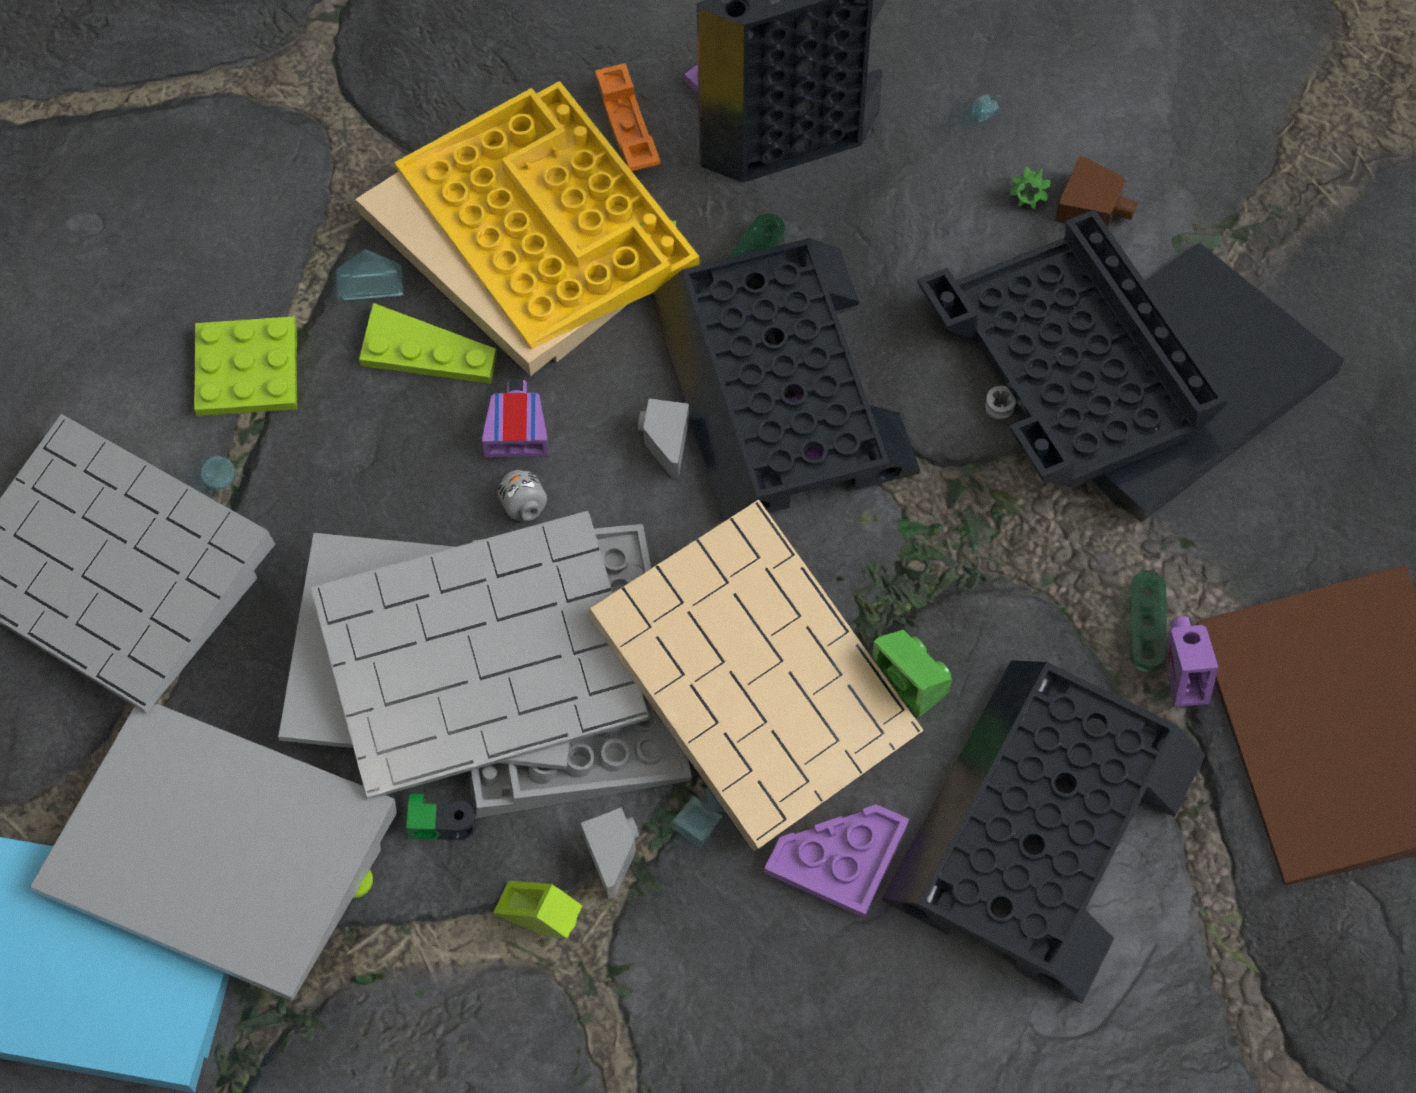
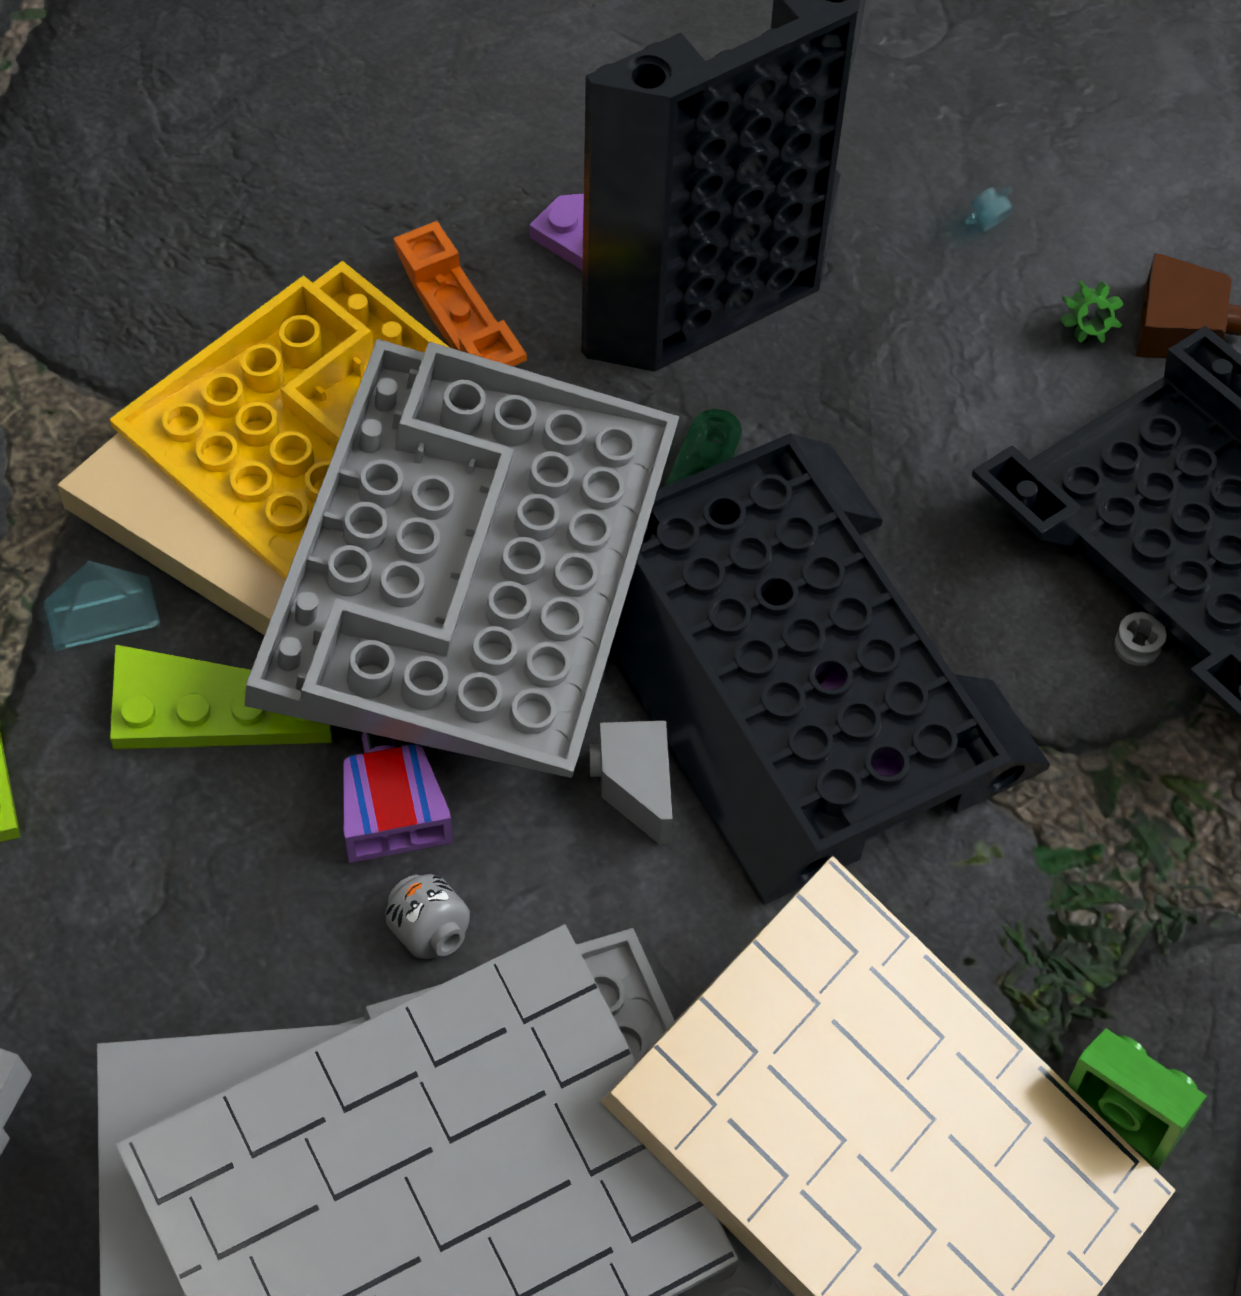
camera: 15 degrees left, 5 degrees down
(590, 283) = (465, 559): none -> light grey slope

